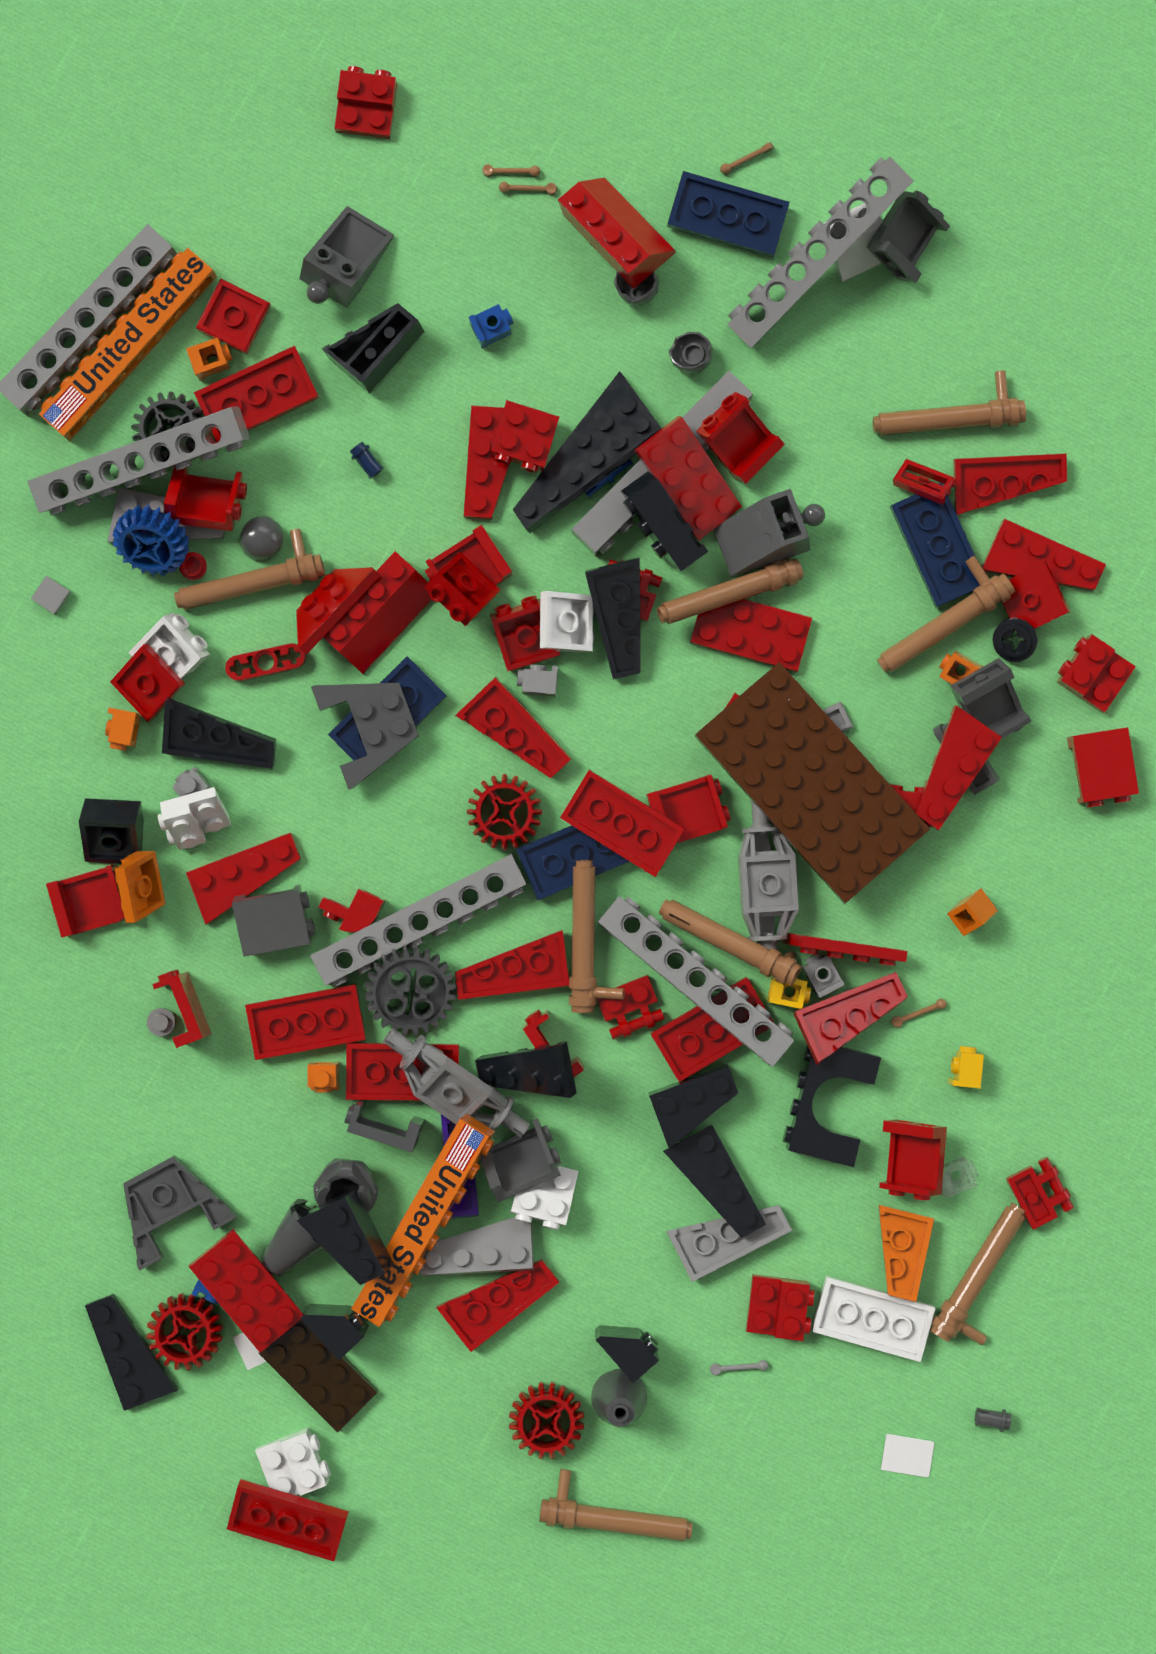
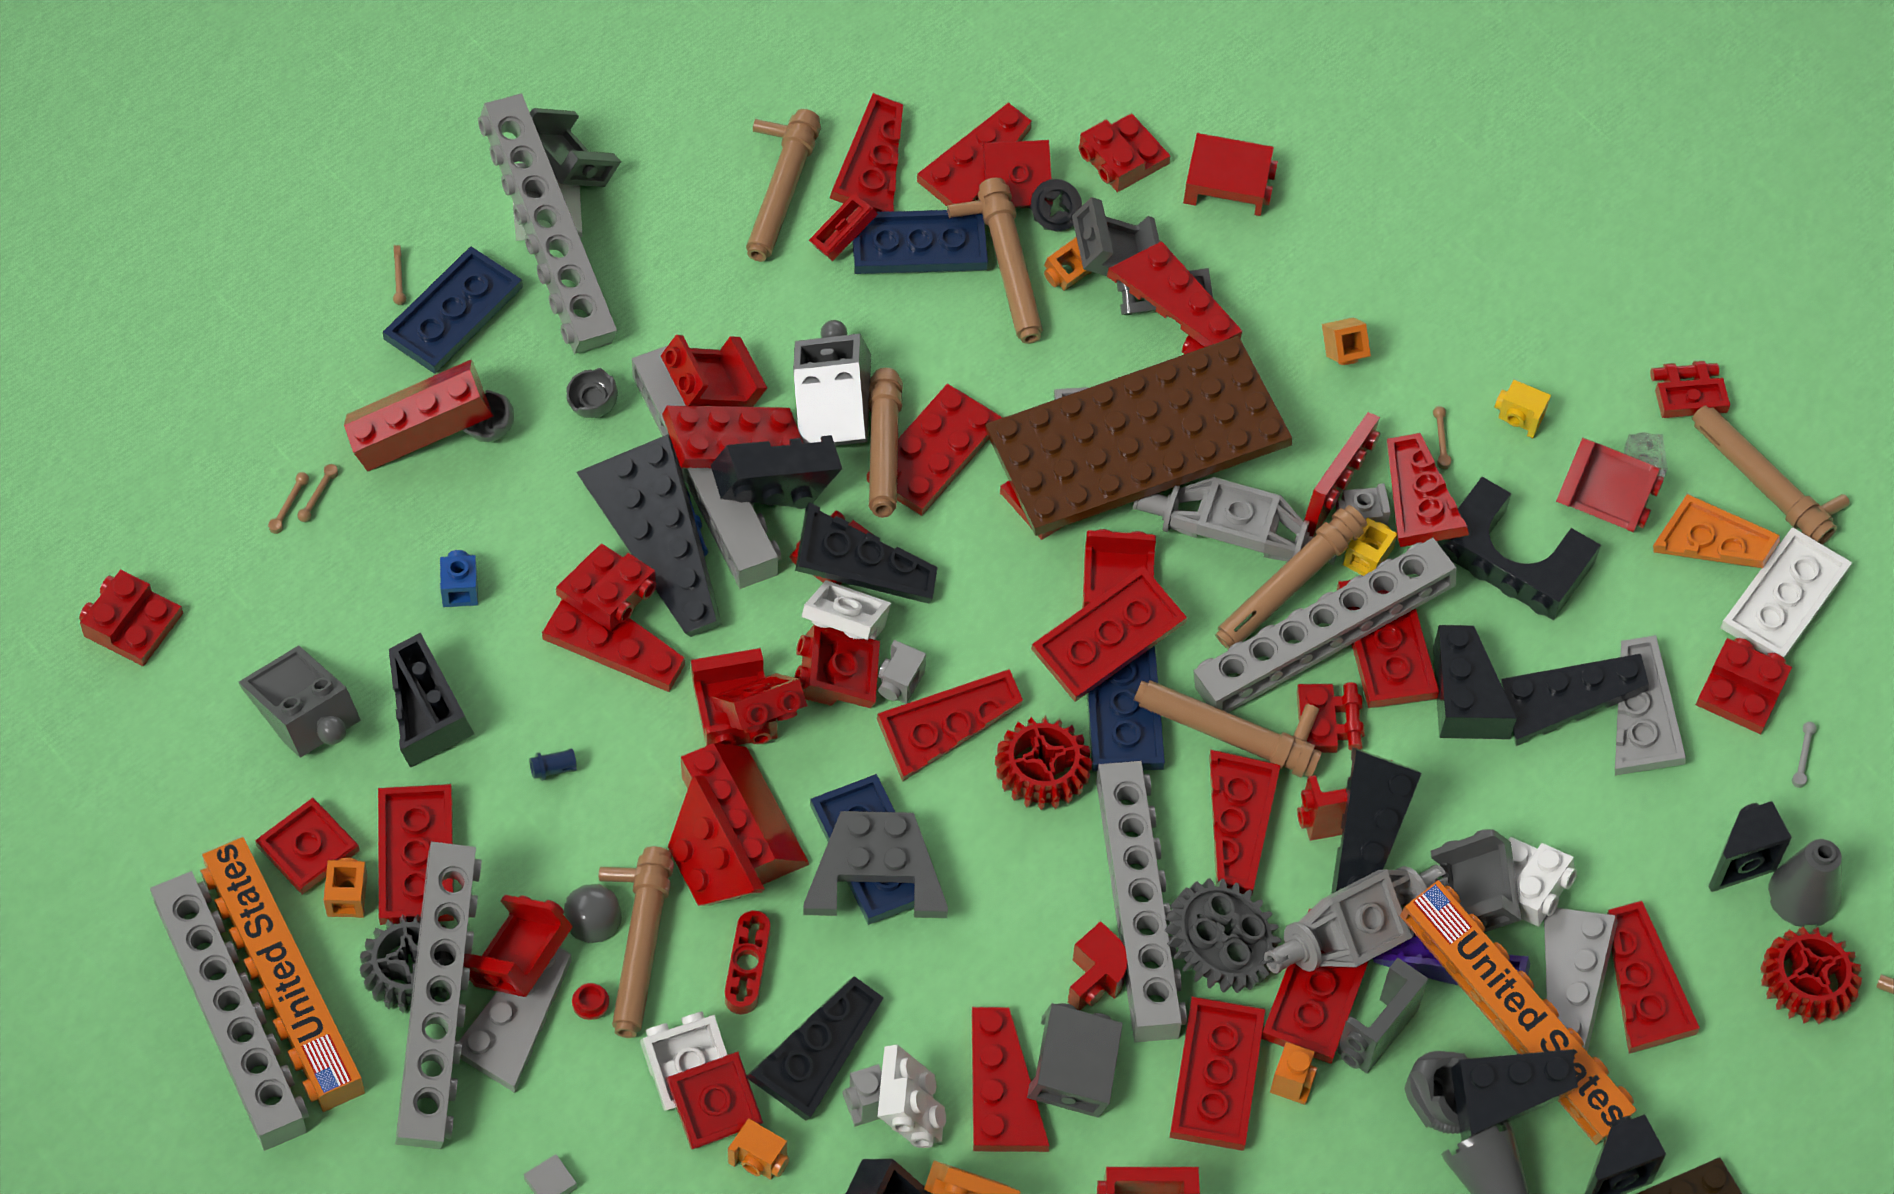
camera: 75 degrees left, 30 degrees down
(150, 540) = (550, 1039): blue gear -> none

